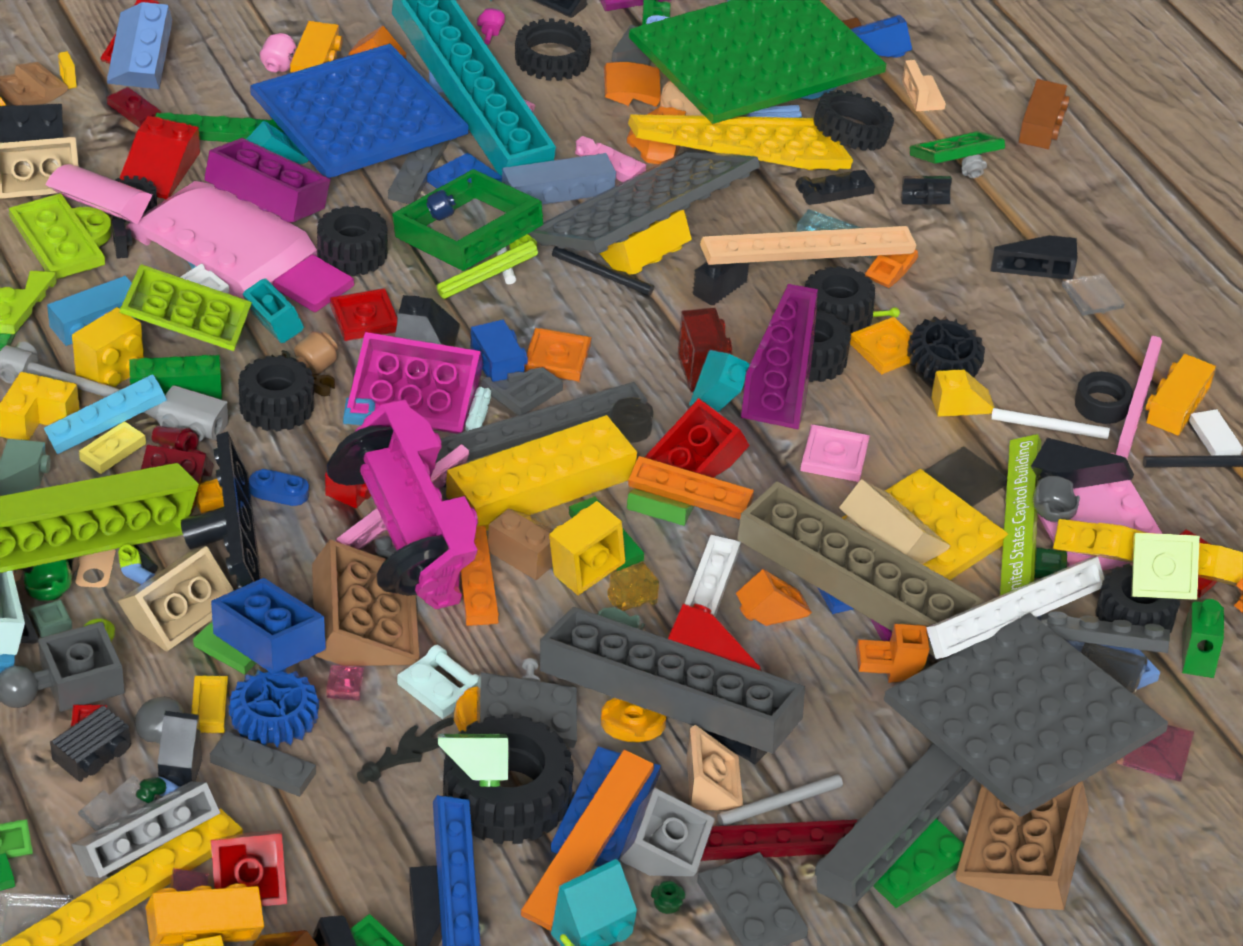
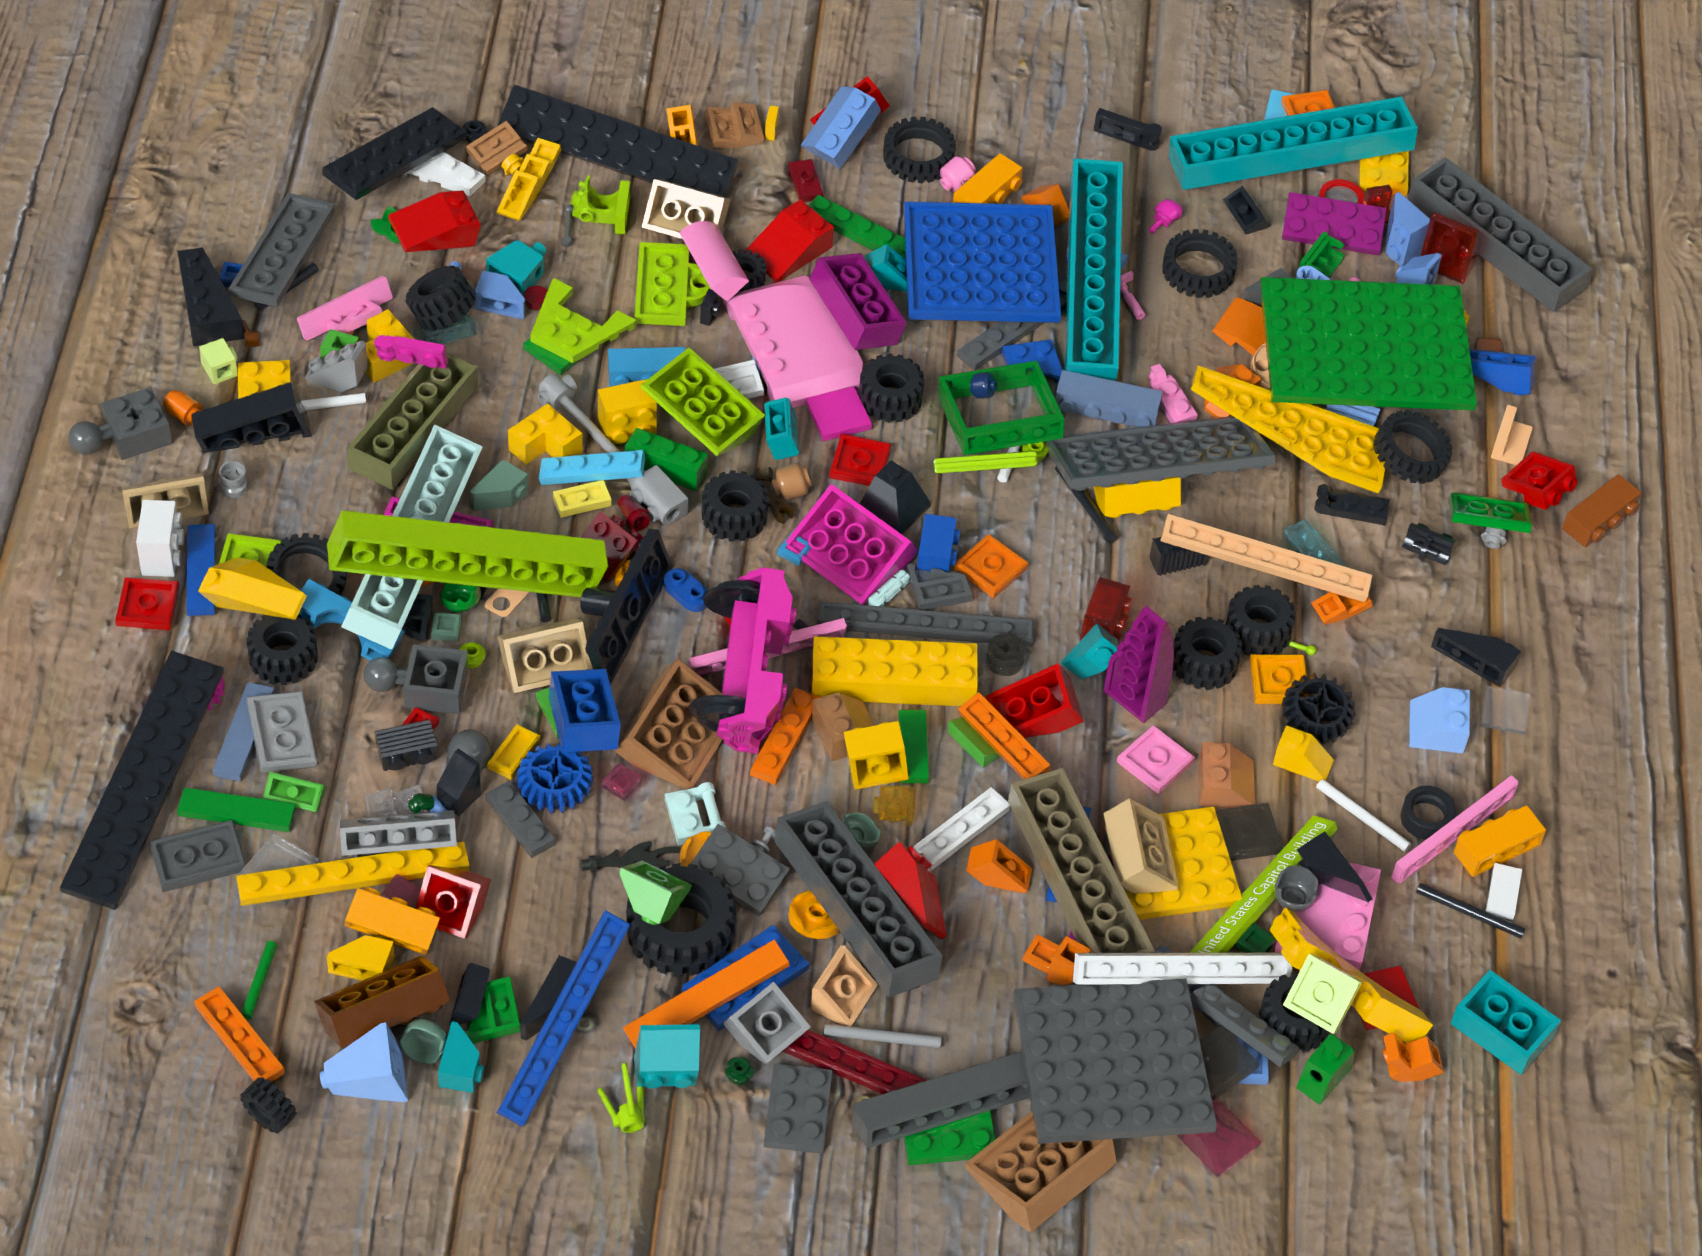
camera: 30 degrees right, 10 degrees up
(131, 564) = (530, 609): arm -> none
(225, 29) = (918, 130): none -> black tyre
(906, 440) = (1225, 776): none -> nougat slope
(976, 106) = (1541, 480): none -> red plate
(1053, 320) = (1440, 720): none -> light blue slope

